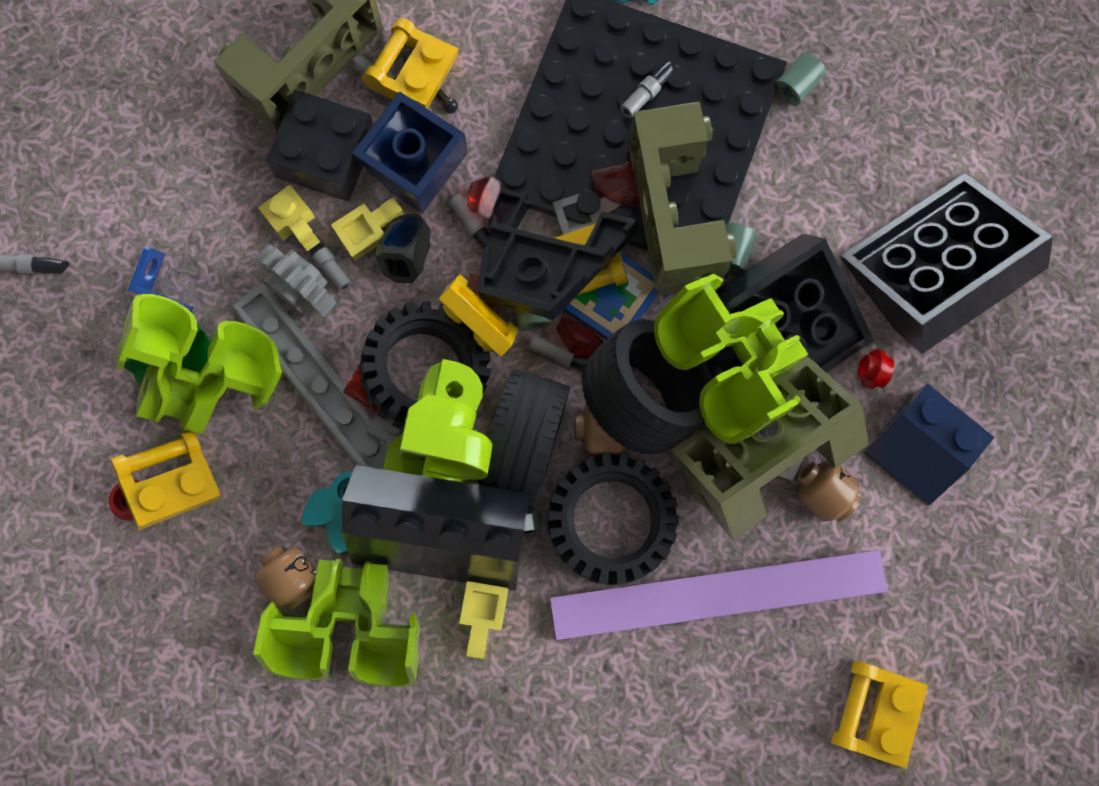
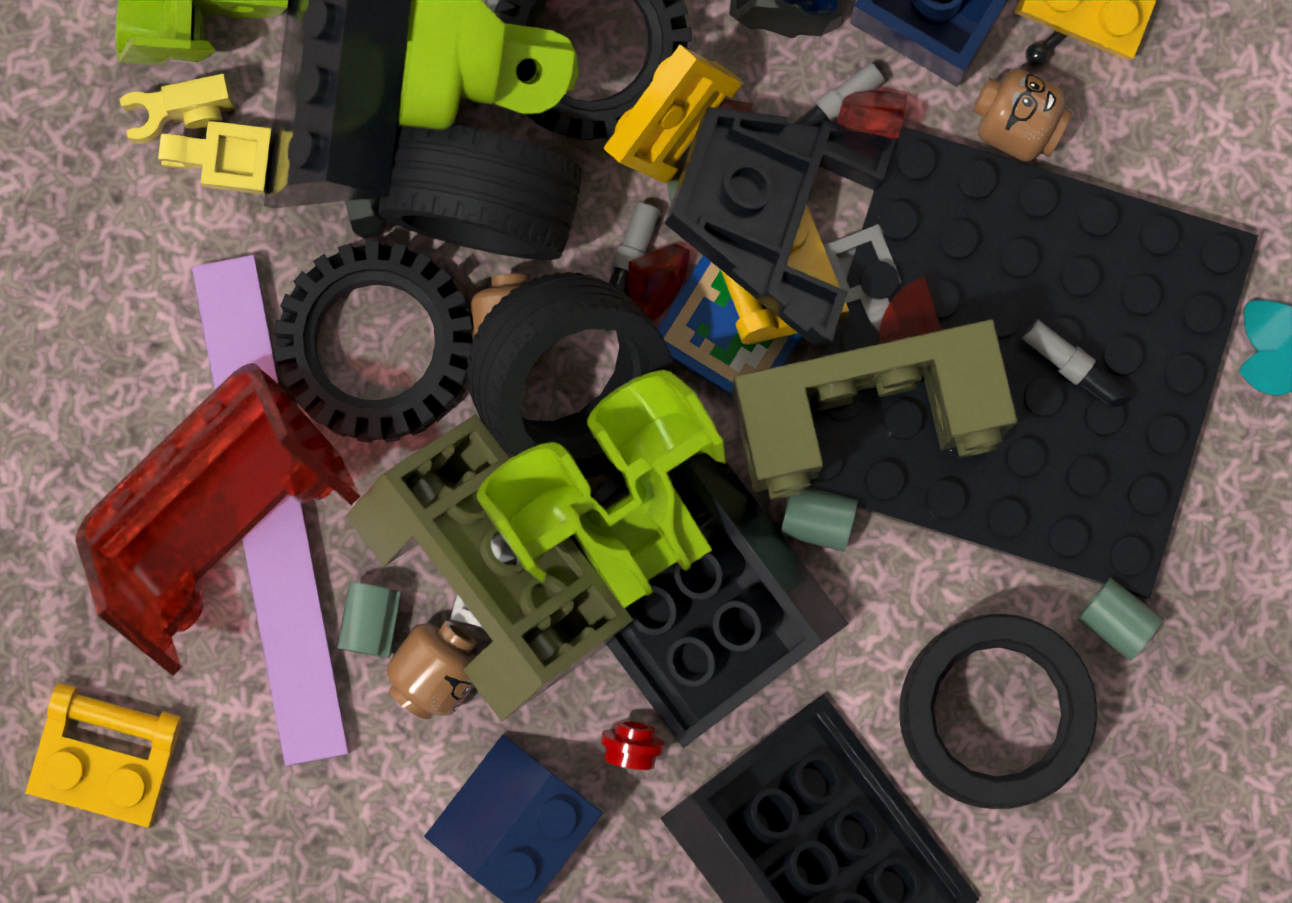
camera: 90 degrees right, 5 degrees up
(446, 631) = (186, 101): none -> light yellow plate
(490, 111) = (1021, 115): none -> medium nougat head
(717, 647) = (196, 502): none -> clear red windscreen
(794, 532) = (369, 620): none -> sand green piece
(885, 113) = (1075, 697): none -> black tyre

